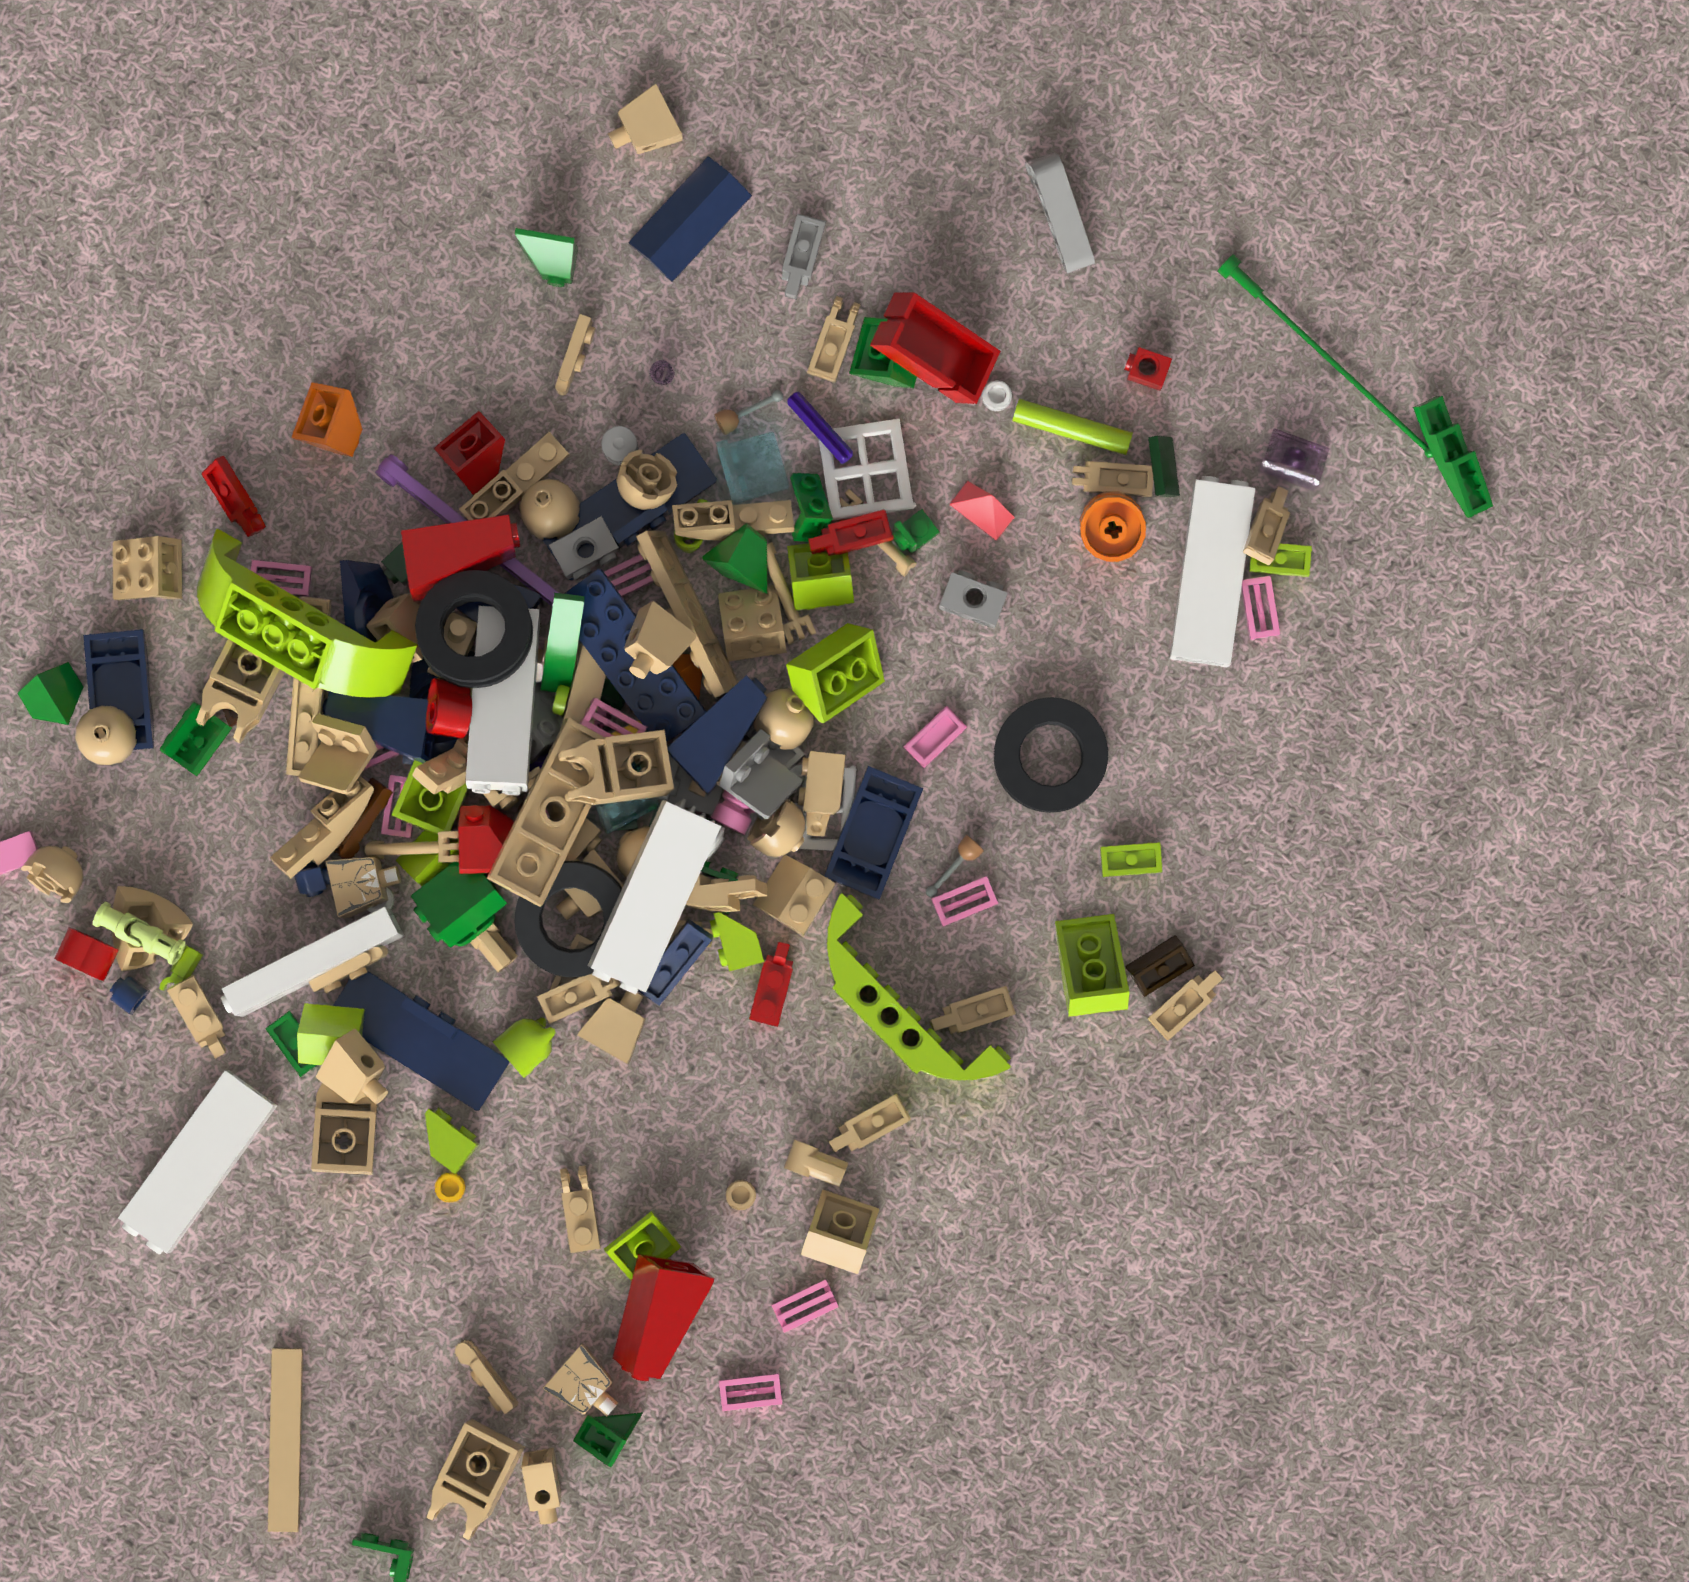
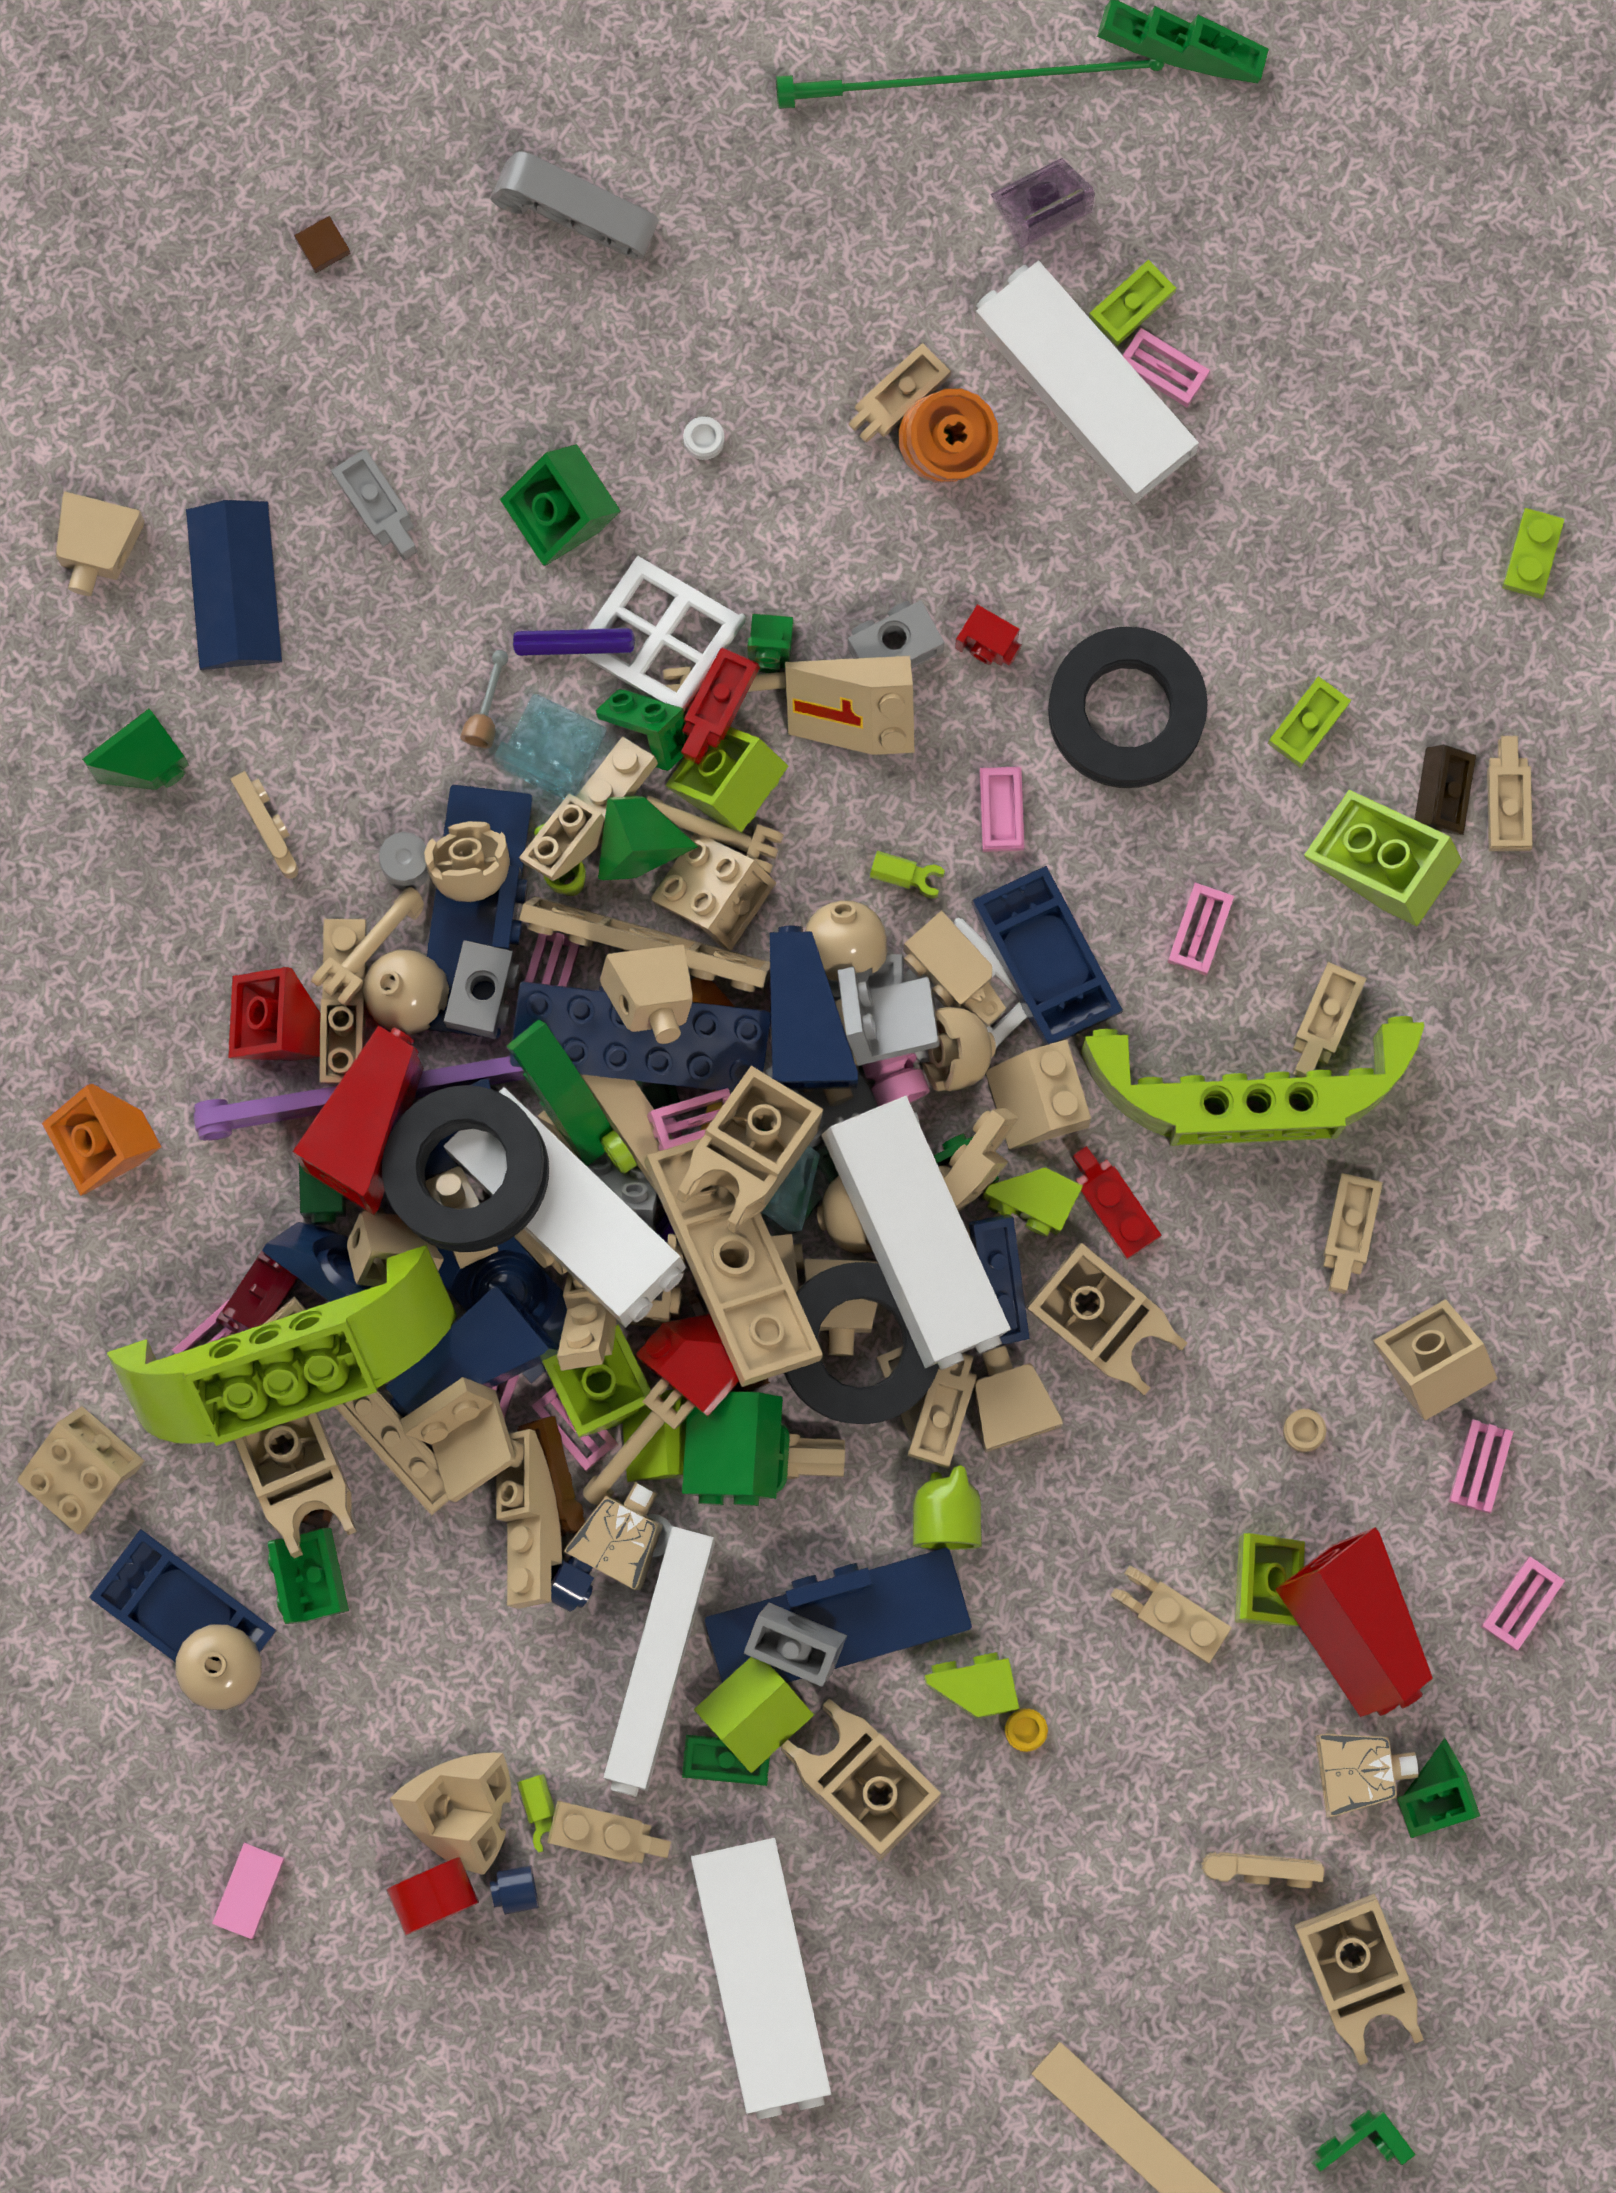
camera: 50 degrees left, 5 degrees down
(52, 694) = (122, 1689): green slope -> none
(55, 871) = (312, 1852): tan cylinder -> none
(141, 933) = (468, 1814): yellowish green piece -> none
(233, 496) = (86, 1309): red hinge -> none
(315, 579) = (257, 1295): none -> dark red hinge
(352, 968) = (703, 1623): tan hinge -> none
(353, 1069) = (815, 1714): tan torso -> none
(383, 1025) = (795, 1644): none -> light grey brick
(448, 709) = (524, 1272): red piece -> none
(539, 1474) = (1420, 1903): tan torso -> none
(599, 467) = (407, 903): none -> tan hinge
(657, 370) = (362, 757): clear purple hinge -> none
(700, 1044) = (1116, 1324): none -> tan brick
(810, 1162) = (1333, 1326): tan piece -> none
(833, 343) = (498, 552): tan hinge -> none
(836, 671) = (845, 842): lime slope -> none
(853, 717) = (905, 873): none -> lime bar
(918, 607) = (853, 703): none -> tan slope
(919, 95) = (322, 244): none -> reddish brown tile
(935, 347) = (602, 446): red piece -> none
(968, 850) = (1151, 877): hinge -> none
(982, 510) = (808, 554): coral slope -> none
(1021, 647) = (989, 638): none -> red brick
(1072, 426) = (806, 389): lime piece -> none
(1160, 363) = (821, 245): red brick -> none
(1163, 466) = (931, 334): dark green tile -> none
(1268, 527) = (1090, 283): tan hinge -> none
(1336, 898) = (1533, 553): none -> lime plate

